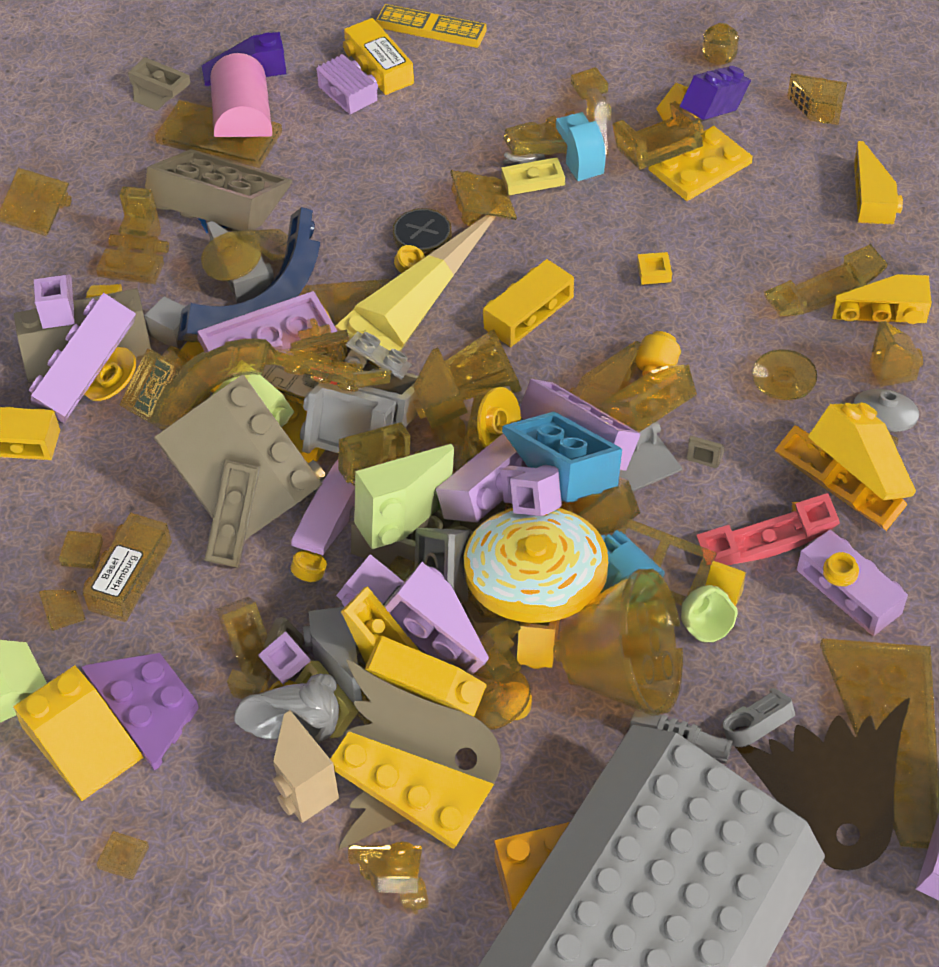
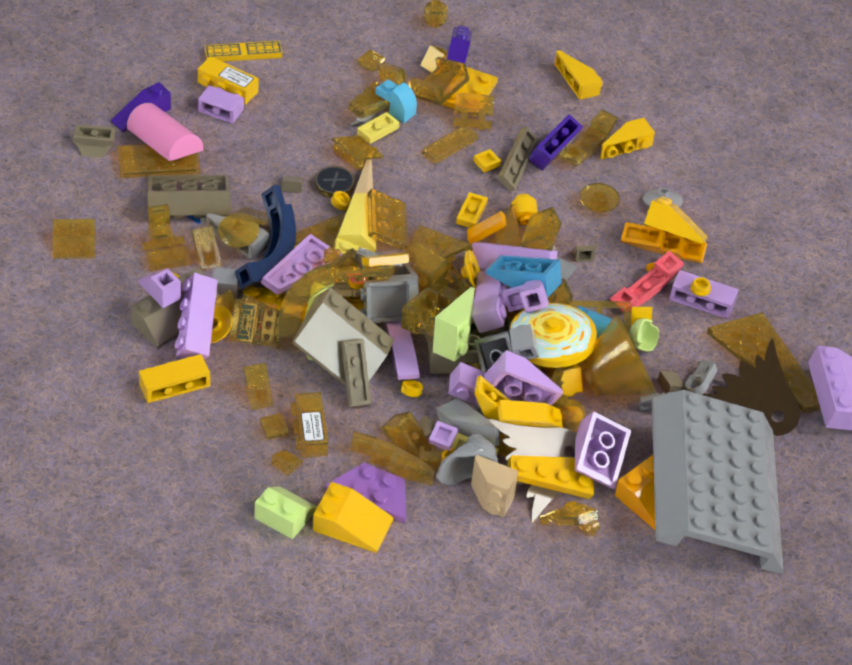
camera: 35 degrees left, 5 degrees down
(98, 483) = (257, 386): none -> clear yellow slope
(122, 855) = (422, 568): clear yellow tile -> none
(139, 345) = (226, 299): none -> clear yellow slope
(179, 267) = (206, 248): none -> clear yellow slope
(200, 667) = (391, 456): none -> clear yellow slope
(364, 217) = (292, 184): none -> dark tan slope
(369, 361) = (388, 259): none -> yellow tile
(448, 307) = (387, 219): none -> clear yellow plate
(466, 559) = (524, 341): none -> light grey brick
(502, 779) = (600, 449): none -> lavender slope
(528, 302) = (430, 201): yellow brick -> none
(578, 364) = (486, 227): none -> light orange tile
(581, 333) = (471, 210): none -> yellow plate
(620, 229) = (450, 144): none -> clear yellow tile
(684, 182) = (474, 105): none -> clear yellow plate
(700, 279) = (517, 158): none -> dark tan plate
(708, 705) = (670, 381): none -> dark tan slope
(767, 270) = (555, 142): none -> dark purple brick
(817, 97) = (513, 31): clear yellow slope -> none
(894, 356) = (651, 169): clear yellow slope -> none

